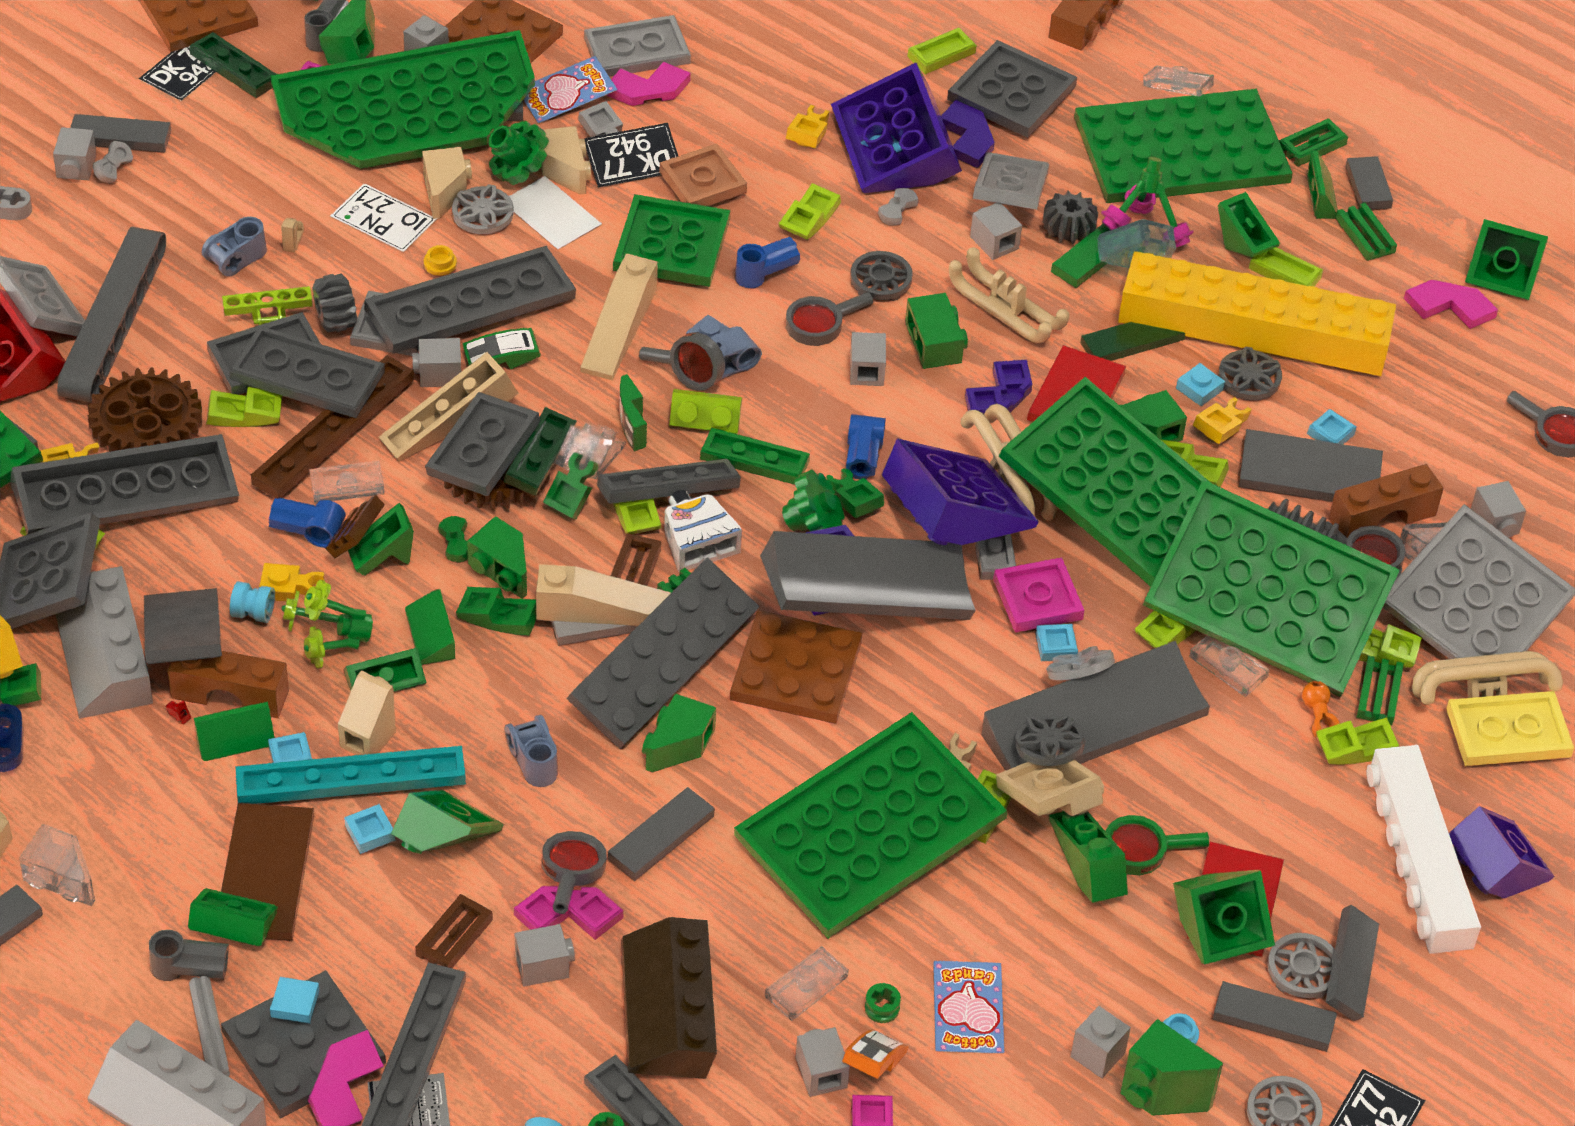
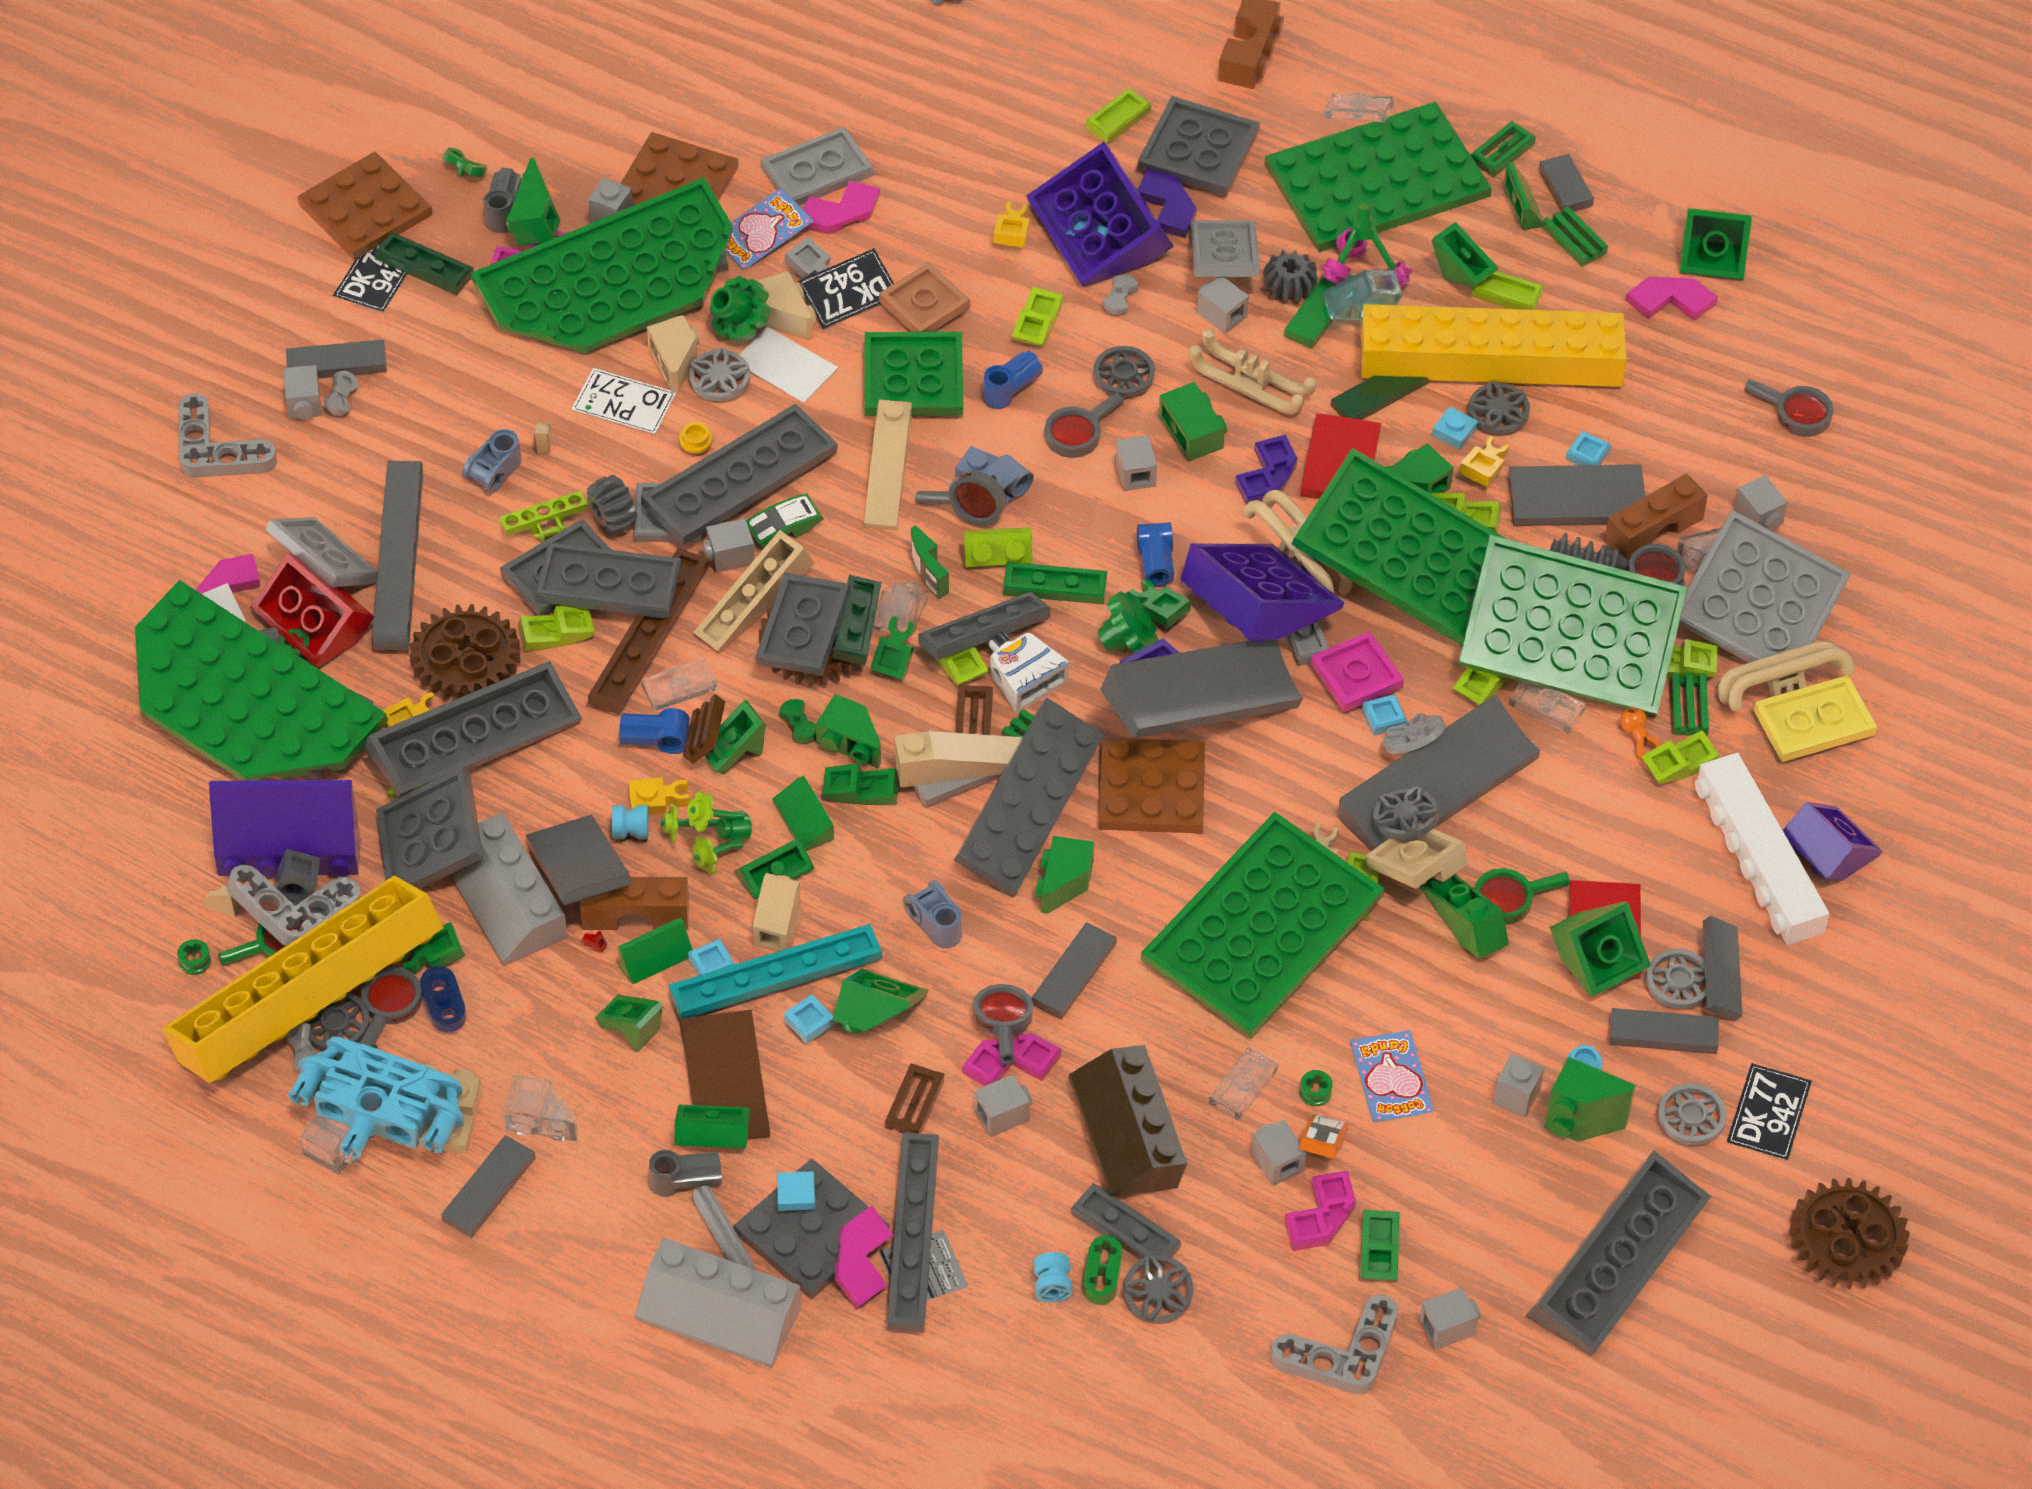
camera: 10 degrees left, 5 degrees up
(189, 793) = (633, 1016): none -> green slope

